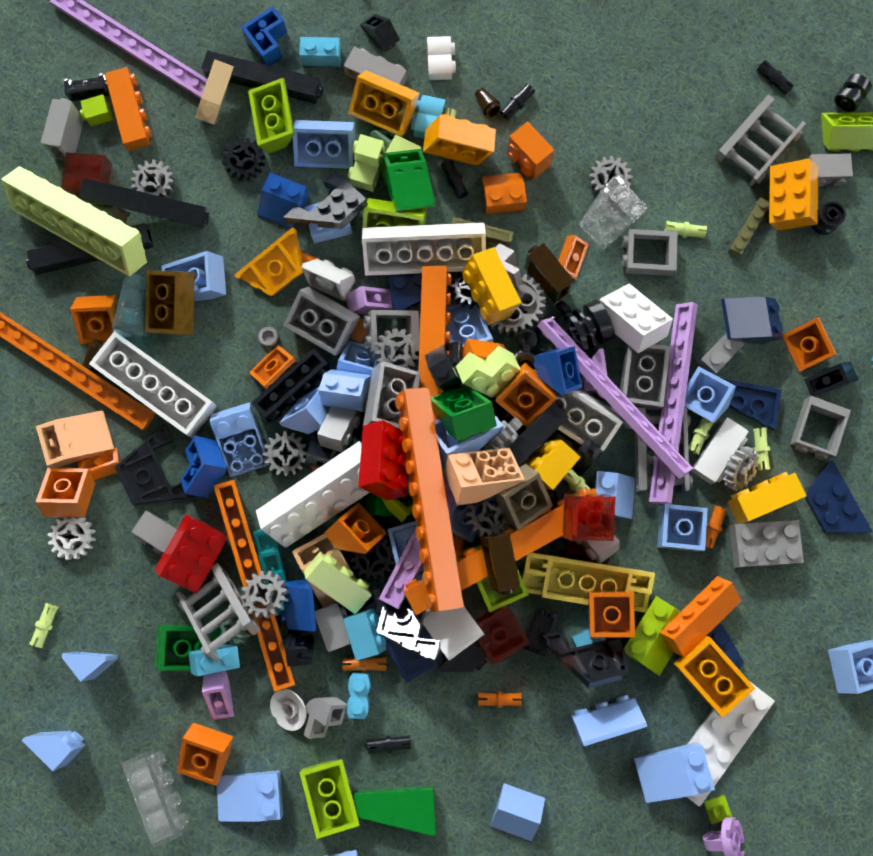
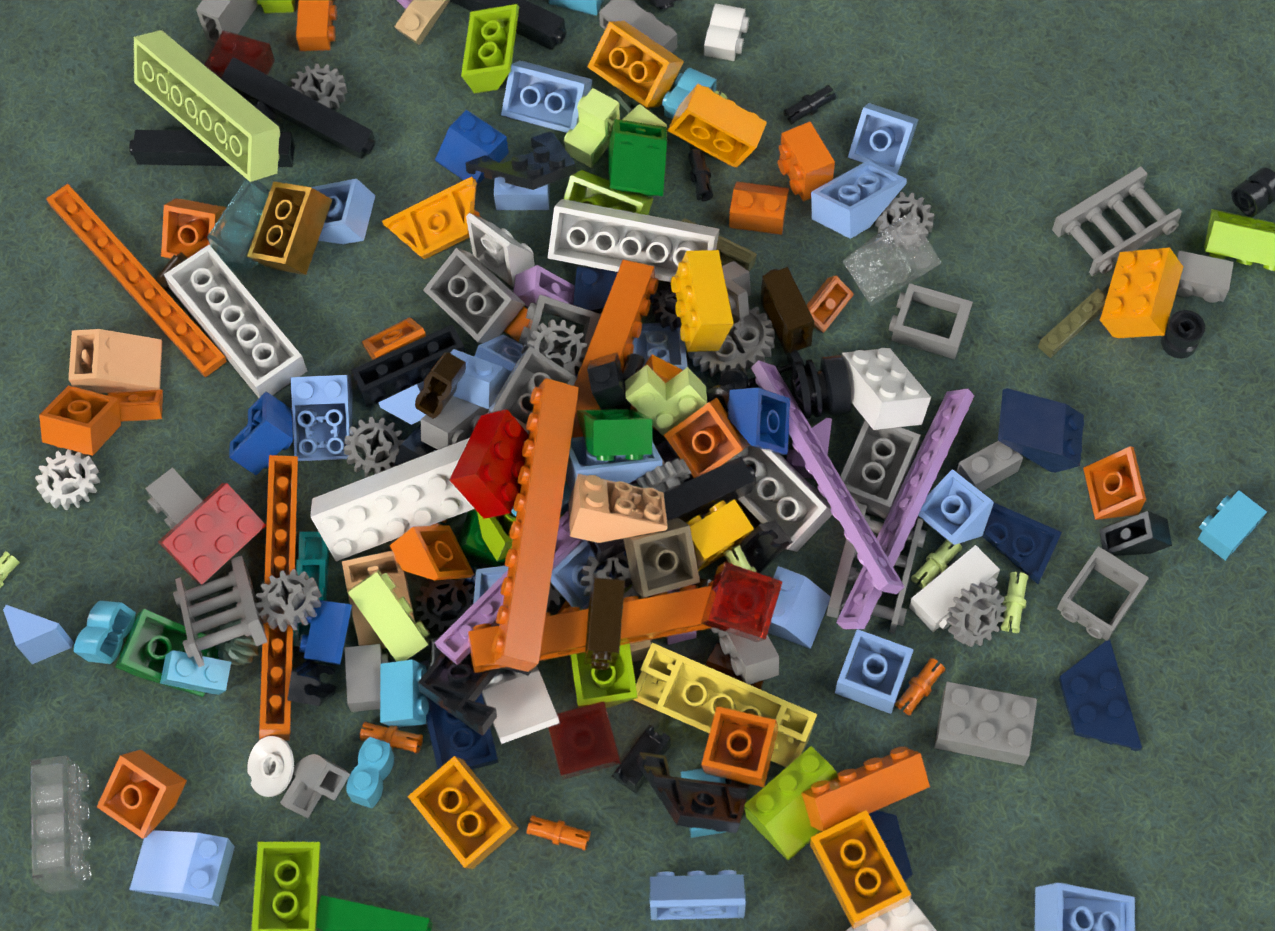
camera: 15 degrees right, 15 degrees down
(138, 645) = (104, 632): none -> medium azure brick
(143, 474) = (185, 428): black wing -> none
(218, 695) = (185, 722): lavender slope -> none
(249, 165) = (440, 90): black gear -> none
(268, 337) = (400, 305): light grey tile -> none
(325, 407) = (440, 385): none -> dark brown brick
(388, 744) = (389, 849): black pin -> none
(433, 709) = (463, 812): none -> light orange brick
(465, 661) = (526, 764): black slope -> none
(487, 102) = (771, 98): dark brown cone -> none
(573, 170) = (855, 198): none -> light blue slope
(578, 116) = (882, 137): none -> light blue slope
(686, 229) = (989, 307): yellowish green pin -> none
(766, 497) = (1001, 659): yellow brick -> none
(775, 77) = (1159, 152): black pin -> none

